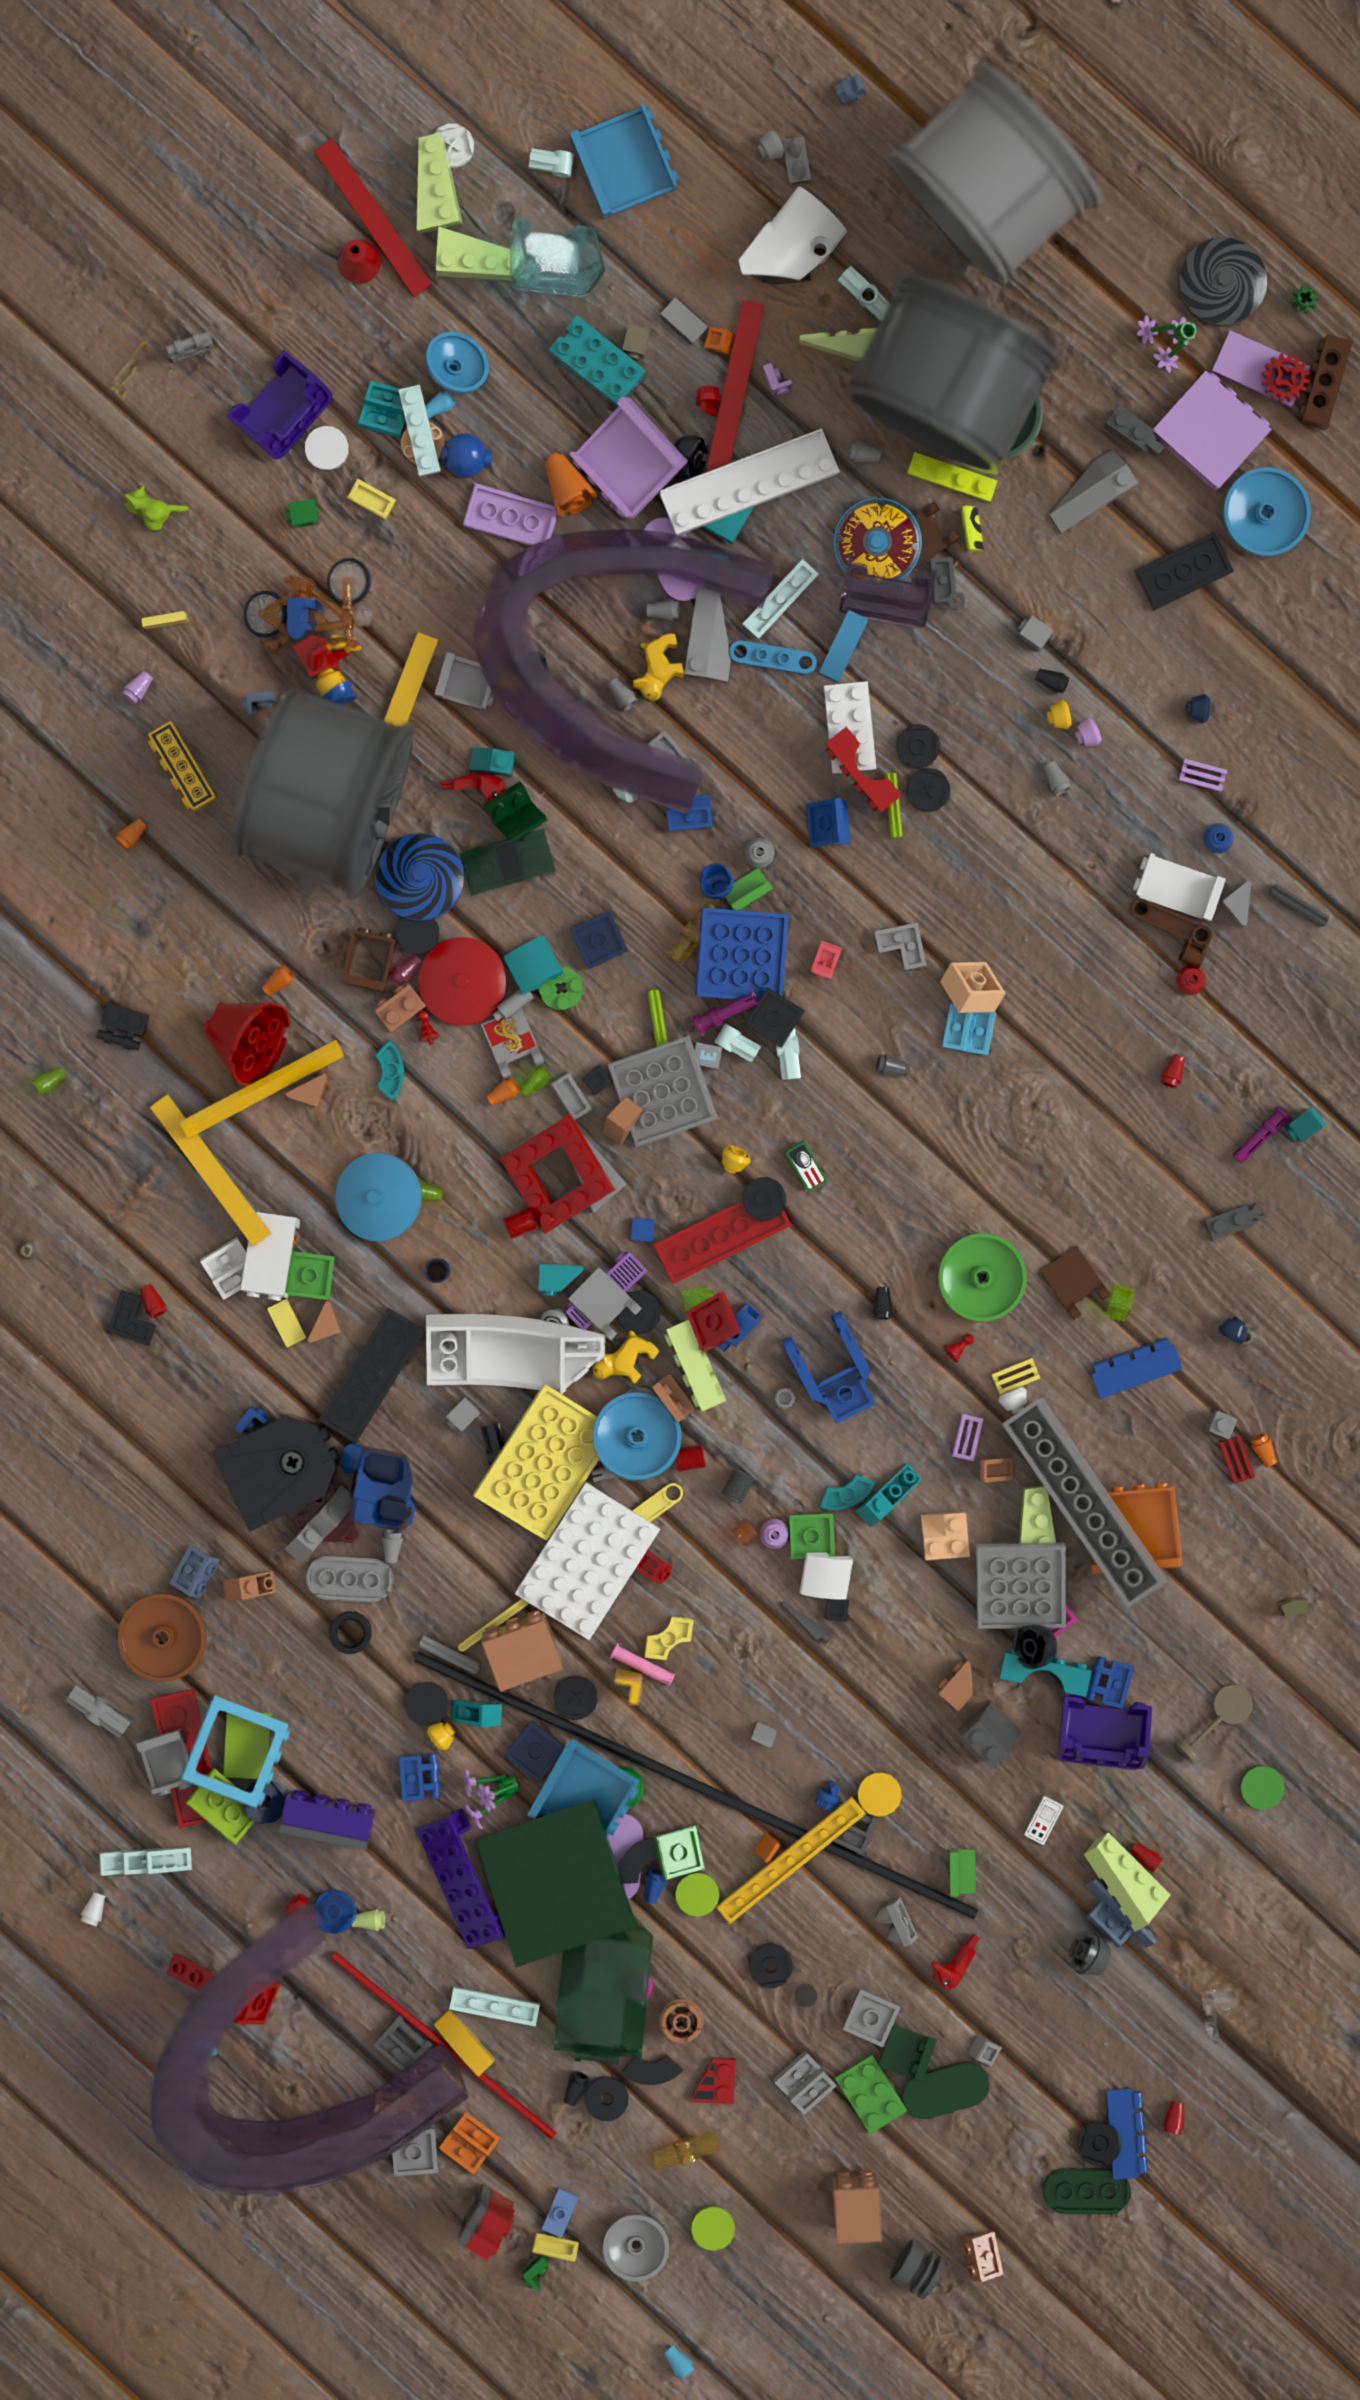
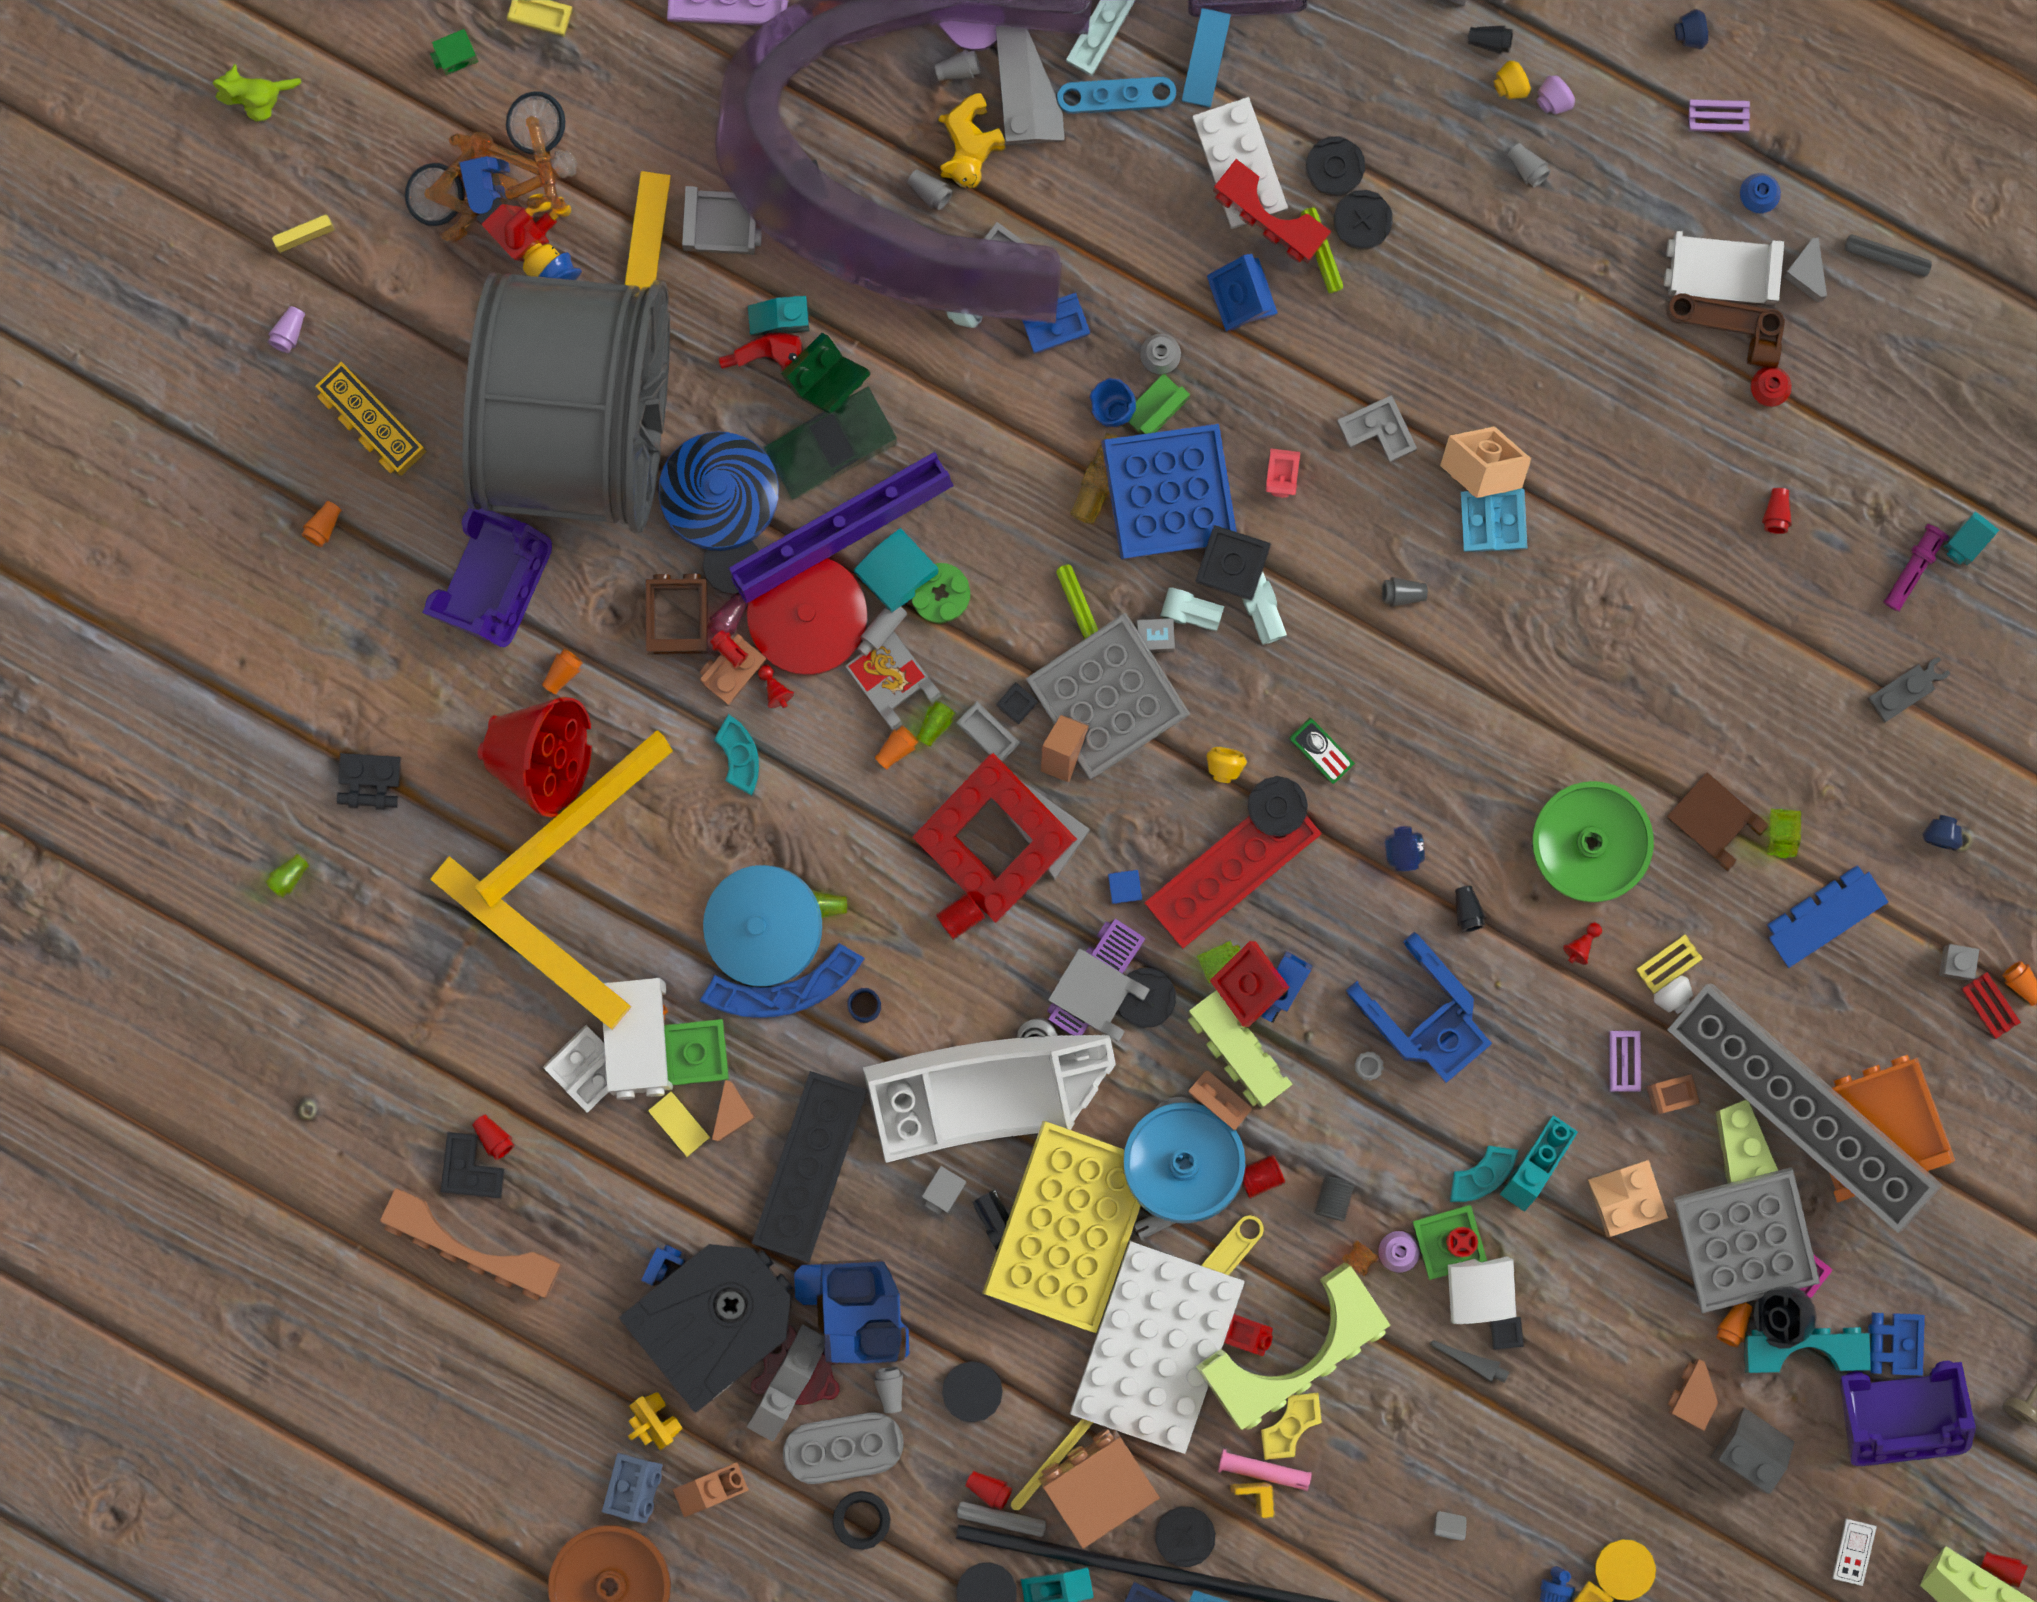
camera: 15 degrees left, 5 degrees down
(84, 1345) = (412, 1216): none -> nougat arch
(223, 1537) = (648, 1425): none -> yellow hips
(243, 903) = (492, 577): none -> dark purple windscreen
(262, 699) = (455, 304): sand blue bracket -> none
(310, 1092) = (639, 808): nougat slope -> none
(387, 1251) = (784, 998): none -> blue tile
(399, 994) = (728, 648): none -> red pin
(445, 1632) = (989, 1489): none -> red cone
(449, 1560) = (972, 1391): none -> black tile
(500, 925) = (840, 527): none -> dark purple tile
(556, 1277) = (1026, 976): teal slope -> none
(599, 940) = (976, 517): dark blue plate -> none
(623, 1360) = (1141, 1066): yellow animal -> none
(717, 1015) = (1156, 580): magenta pin -> none
(729, 1577) = (1352, 1323): none -> yellowish green arch
(817, 1540) = (1465, 1238): none -> red wheel
(848, 1250) = (1405, 849): none -> clear blue head
(998, 1642) = (1734, 1325): none -> orange cone

